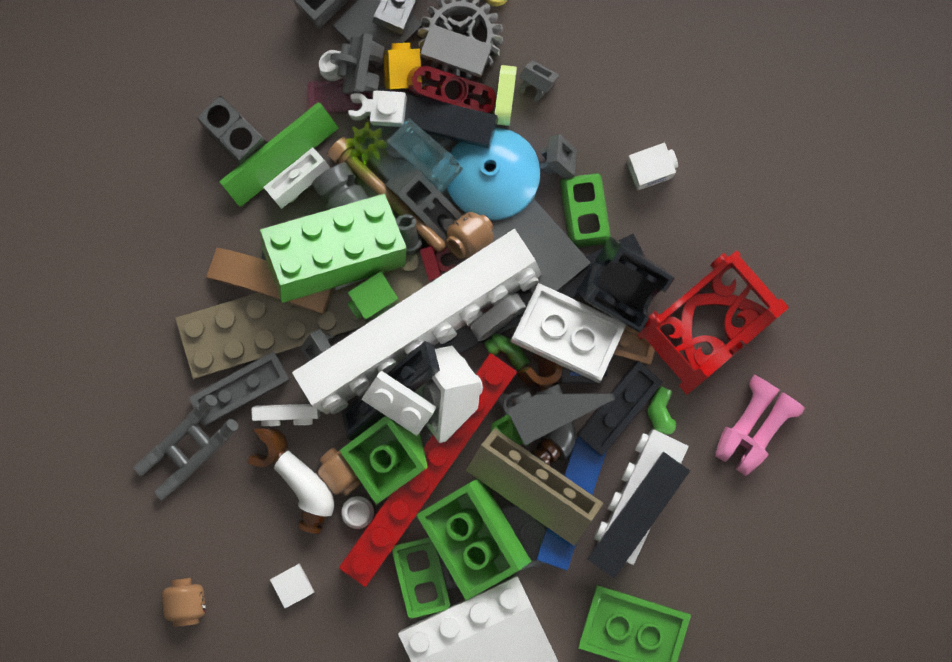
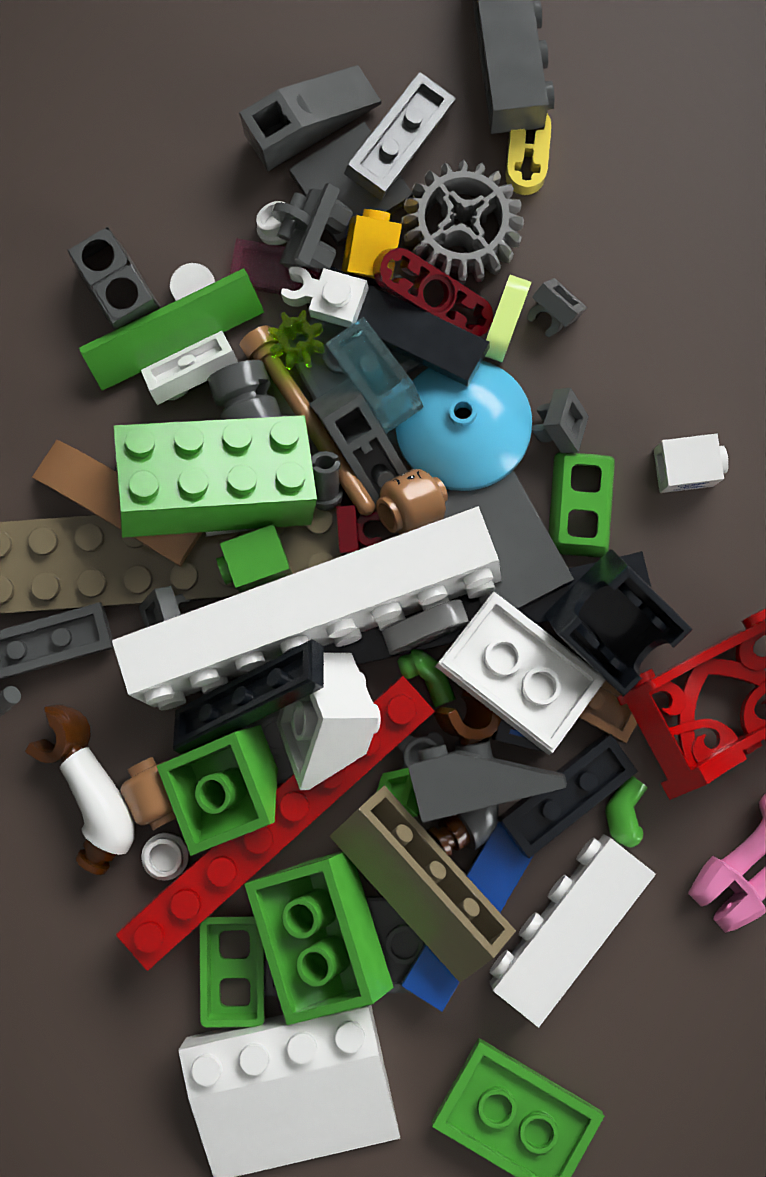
camera: 10 degrees right, 0 degrees up
(272, 414) = (78, 690): white plate -> none
(283, 117) = (189, 279): none -> white tile
(292, 585) = (49, 939): white tile -> none
(398, 403) = (254, 720): white plate -> none
(456, 50) = (452, 238): light grey tile -> none
(638, 514) = (562, 958): black tile -> none

